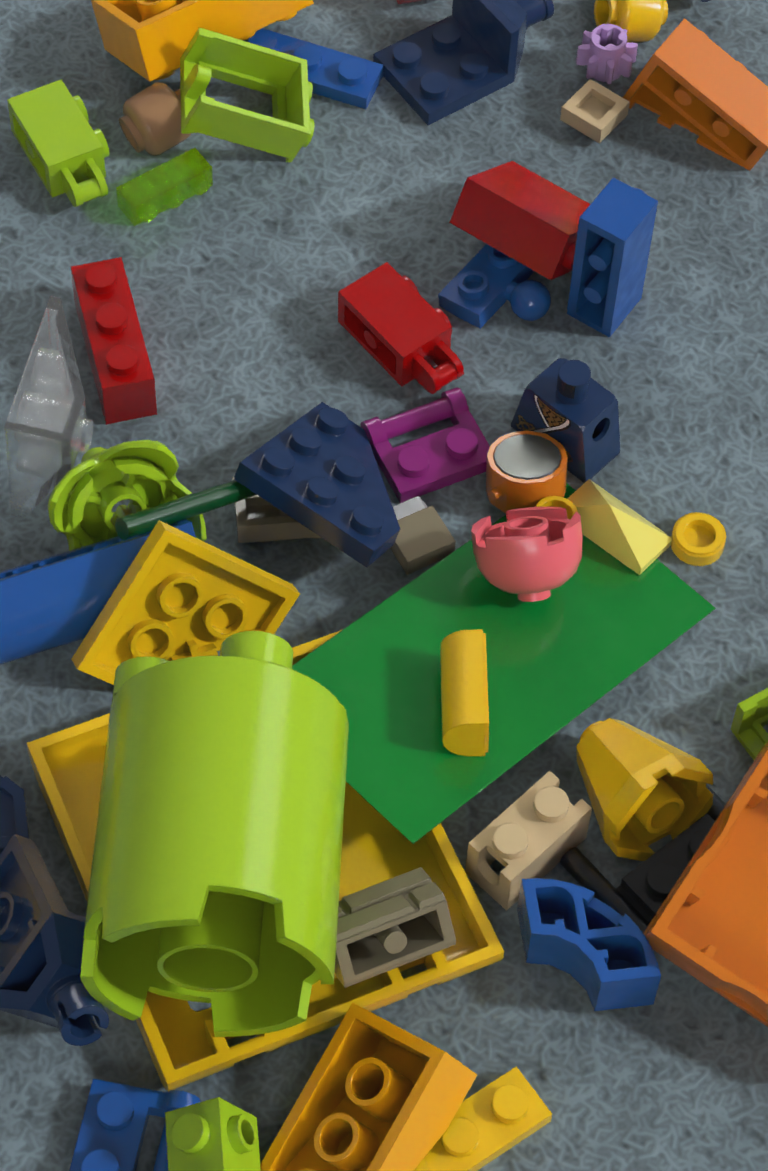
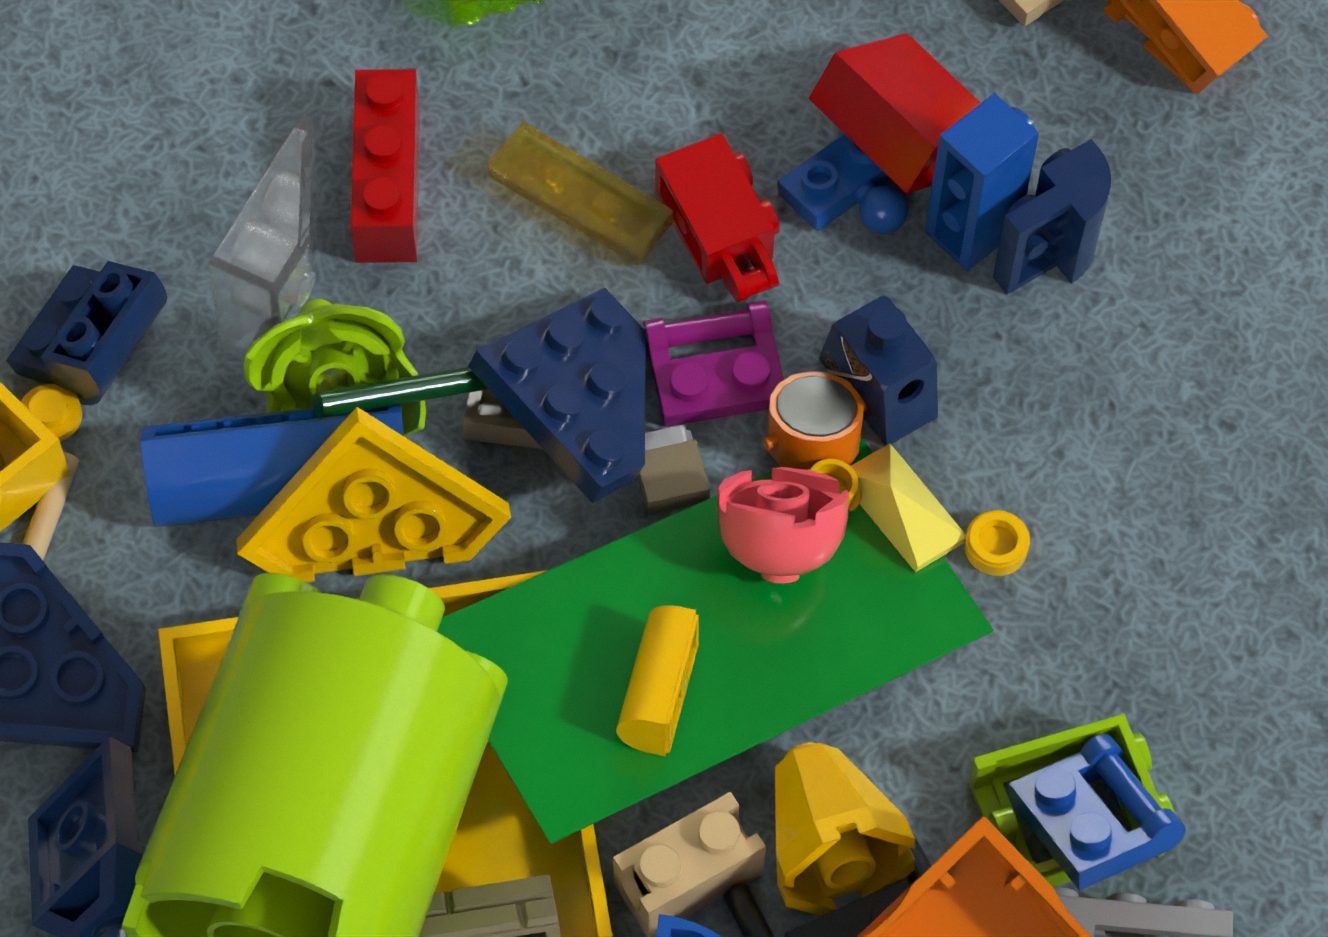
camera: 15 degrees right, 5 degrees up
(280, 333) = (580, 193): none -> clear yellow plate
(678, 278) = (1057, 223): none -> dark blue brick

